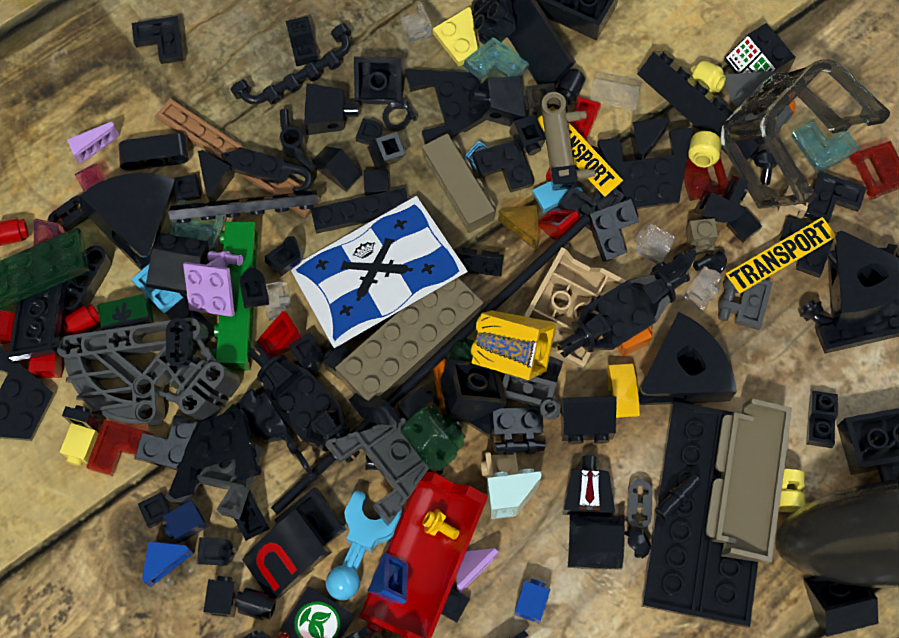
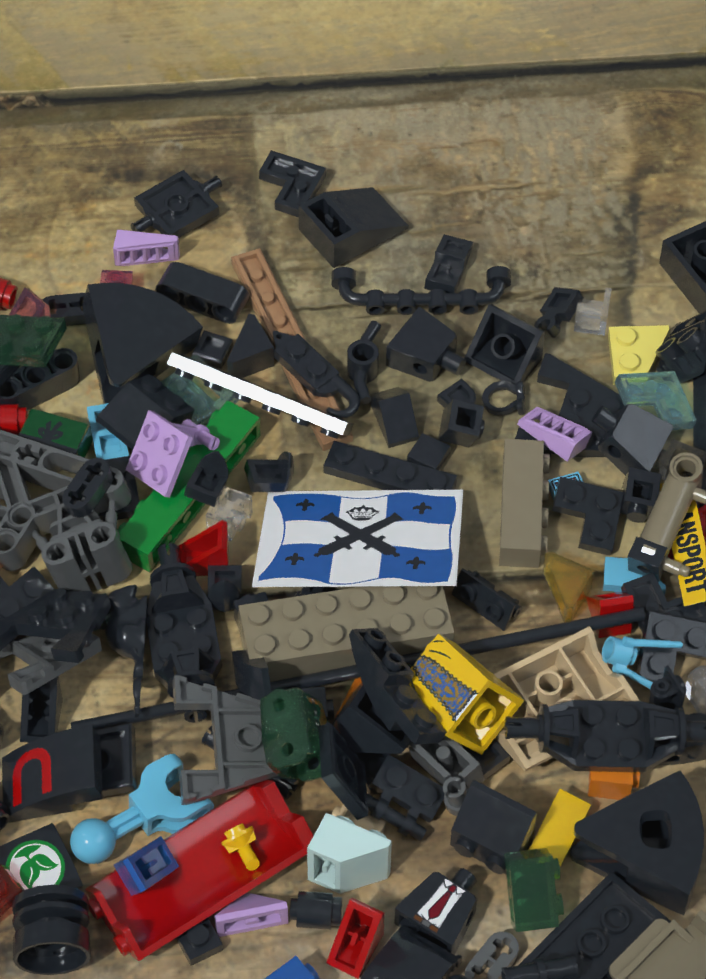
camera: 30 degrees right, 15 degrees down
(93, 98) = (177, 205): none -> black plate
(218, 48) = (348, 223): none -> black slope
(393, 32) = (558, 307): none -> black plate
(457, 122) = (560, 435): none -> lavender slope
(468, 366) = (388, 688): none -> black slope
(477, 441) = (343, 771): none -> black plate
(513, 539) = (316, 910): none -> black brick
(550, 543) = (356, 938): none -> red slope
(590, 251) = (624, 652): none -> medium azure plant
(637, 264) = (668, 690): none -> black hinge
(638, 444) = (533, 889): none -> clear green brick

